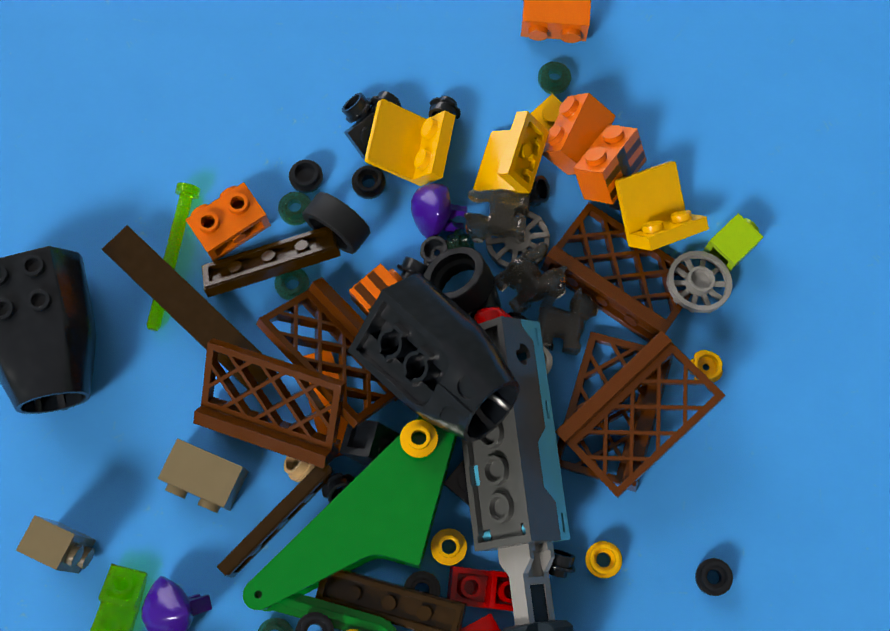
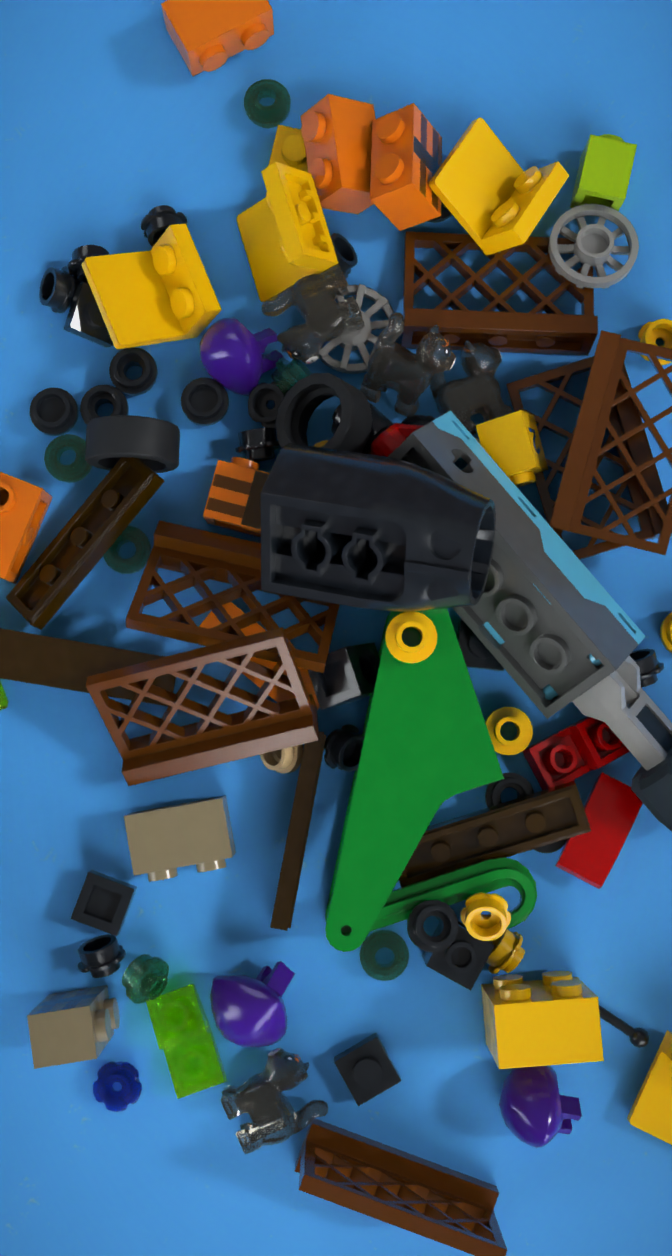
camera: 40 degrees left, 10 degrees up
(67, 606) = (117, 1072): none -> clear blue plate
(104, 517) = (101, 956): none -> black plate
(121, 549) = (145, 978): none -> clear green plate
(129, 486) = (103, 902): none -> black plate
(341, 184) = (99, 395): none -> black plate
(398, 226) = (204, 401): none -> black plate
(568, 371) = (514, 446): none -> yellow brick

